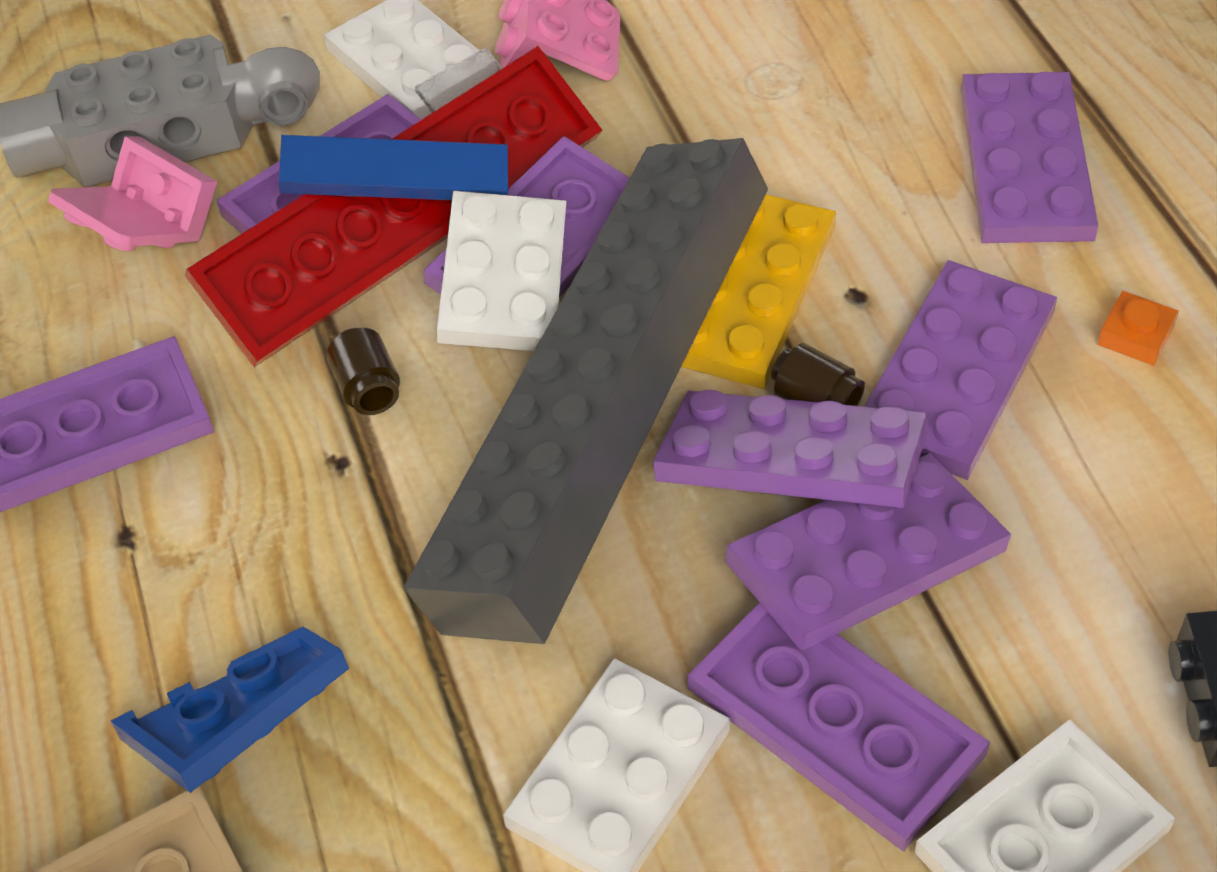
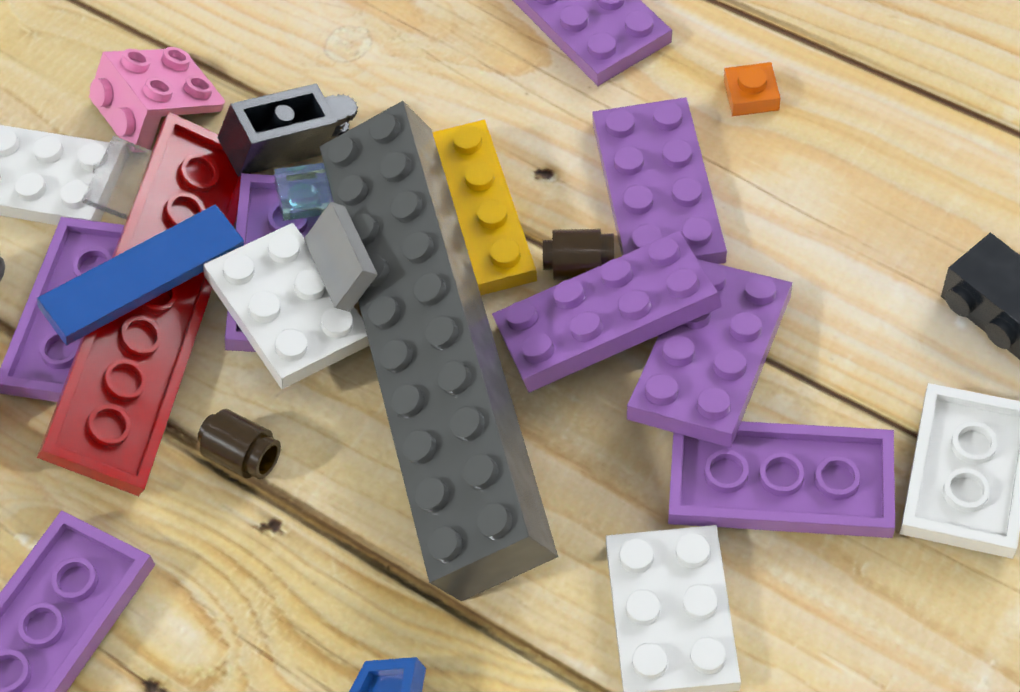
camera: 35 degrees left, 5 degrees up
(573, 250) = (340, 257): none -> light grey tile
(598, 178) = (302, 191): none -> clear light blue plate
(631, 112) = (283, 127): none -> black hinge

